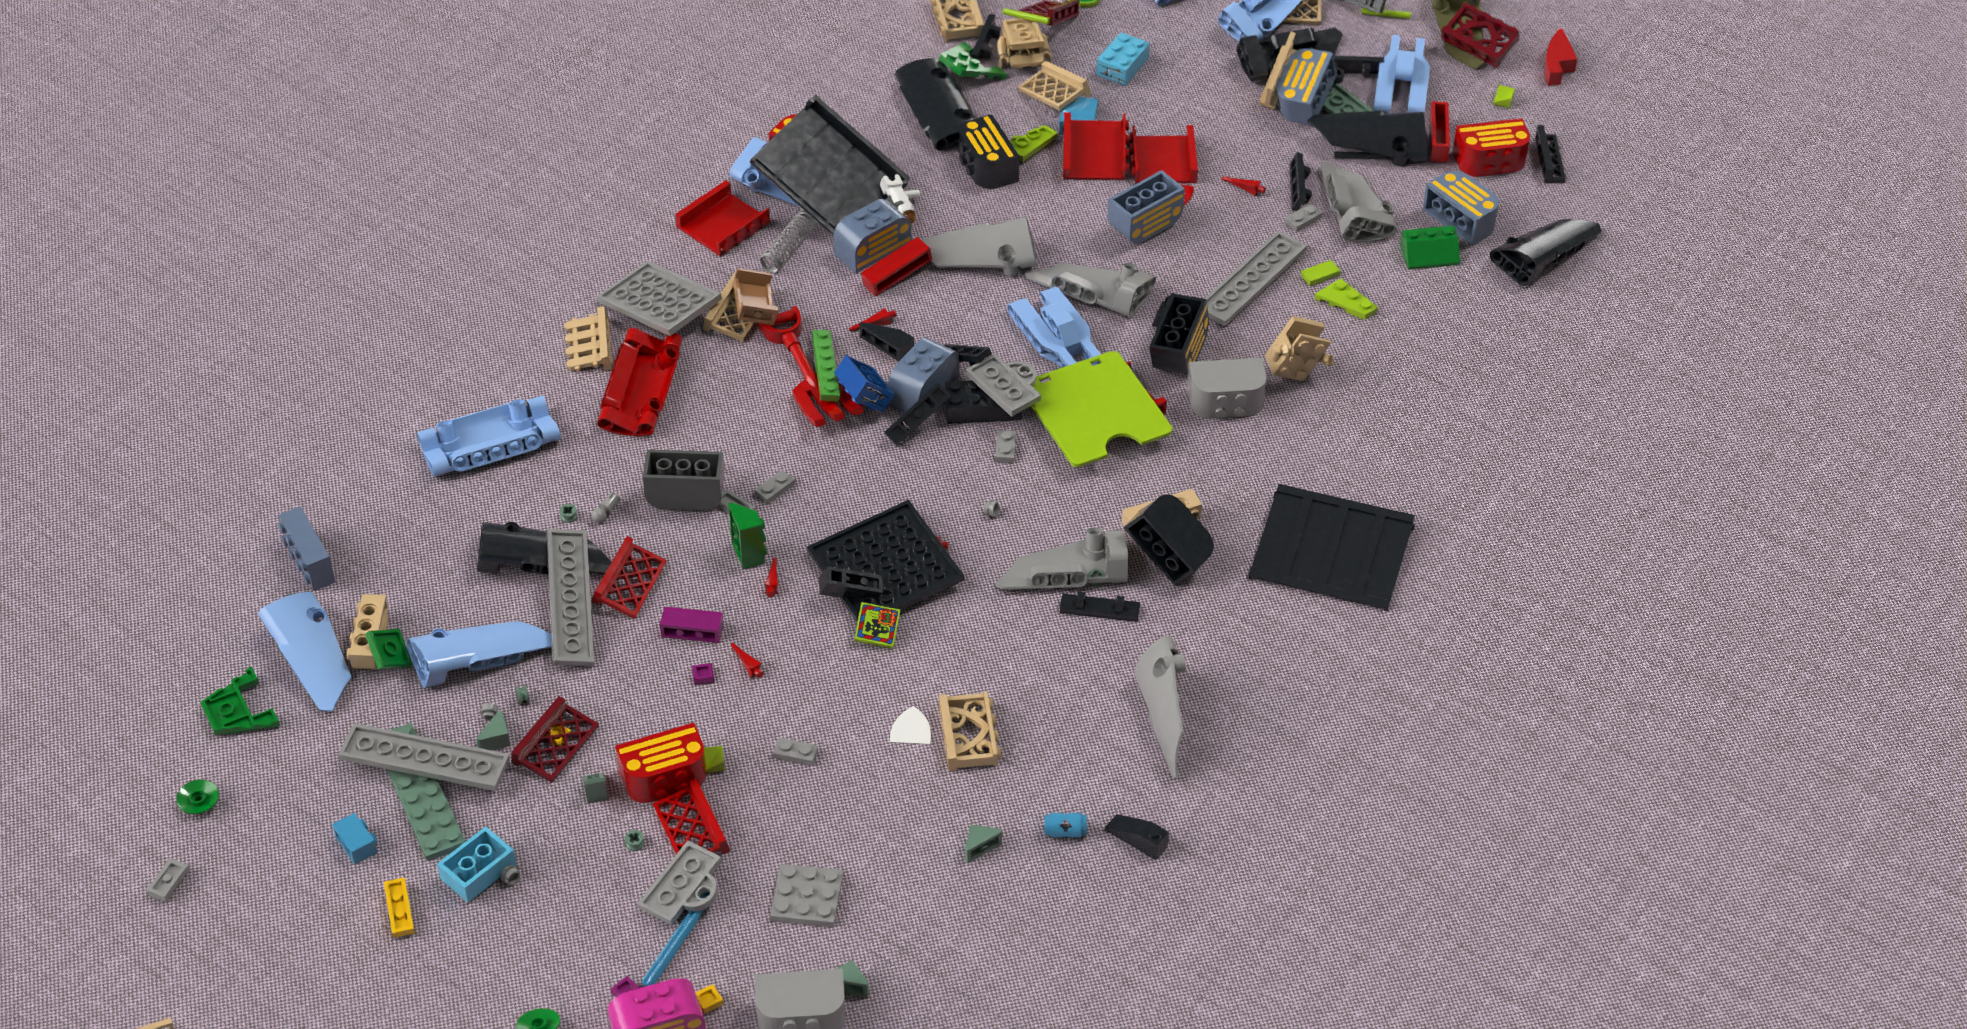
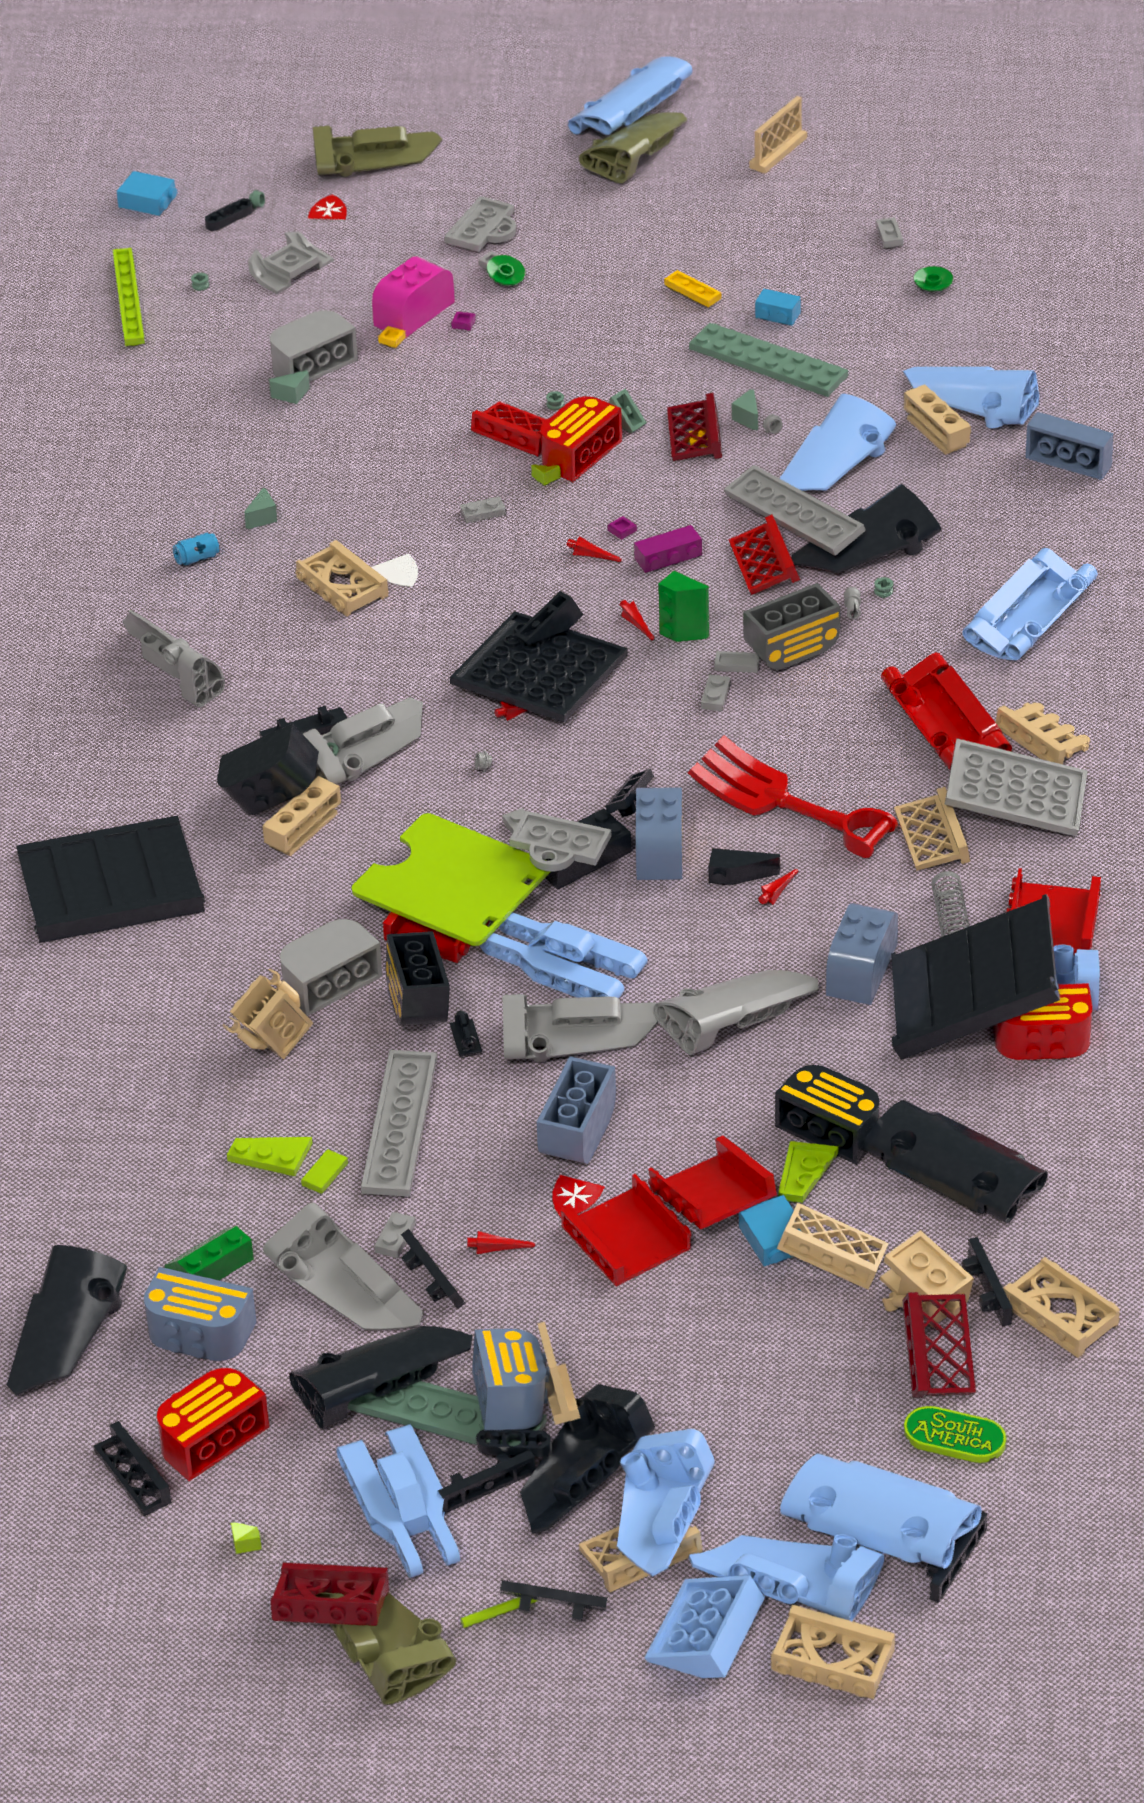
camera: 150 degrees right, 5 degrees down
(229, 712) = (983, 335): green wing -> none
(388, 649) = (904, 407): green tile -> none
(424, 756) = (781, 361): light grey plate -> none
(476, 864) = (658, 325): medium azure brick -> none
(510, 875) = (629, 339): light grey plate -> none
(522, 694) = (758, 443): sand green bush -> none
(673, 945) = (454, 362): dark azure axle -> none
(682, 884) = (479, 382): light grey plate -> none
(754, 296) = (910, 820): medium nougat panel -> none
(806, 895) = (377, 427): light grey plate -> none
(825, 365) = (776, 807): bright green plate -> none
(864, 384) = (710, 787): blue brick -> none
(877, 625) = (497, 614): tile -> none
(896, 266) = (805, 938): red brick -> none
(899, 197) = (880, 1015): white piece -> none
(960, 62) = (977, 1216): green wing -> none
(970, 354) = (639, 865): black hinge -> none
(1027, 16) = (965, 1289): lime bar -> none
(1123, 58) = (788, 1338): medium azure brick -> none
(1140, 834) = (121, 569): black slope -> none
(1439, 131) = (296, 1420): red brick -> none
(1559, 58) = (203, 1637): red slope -> none

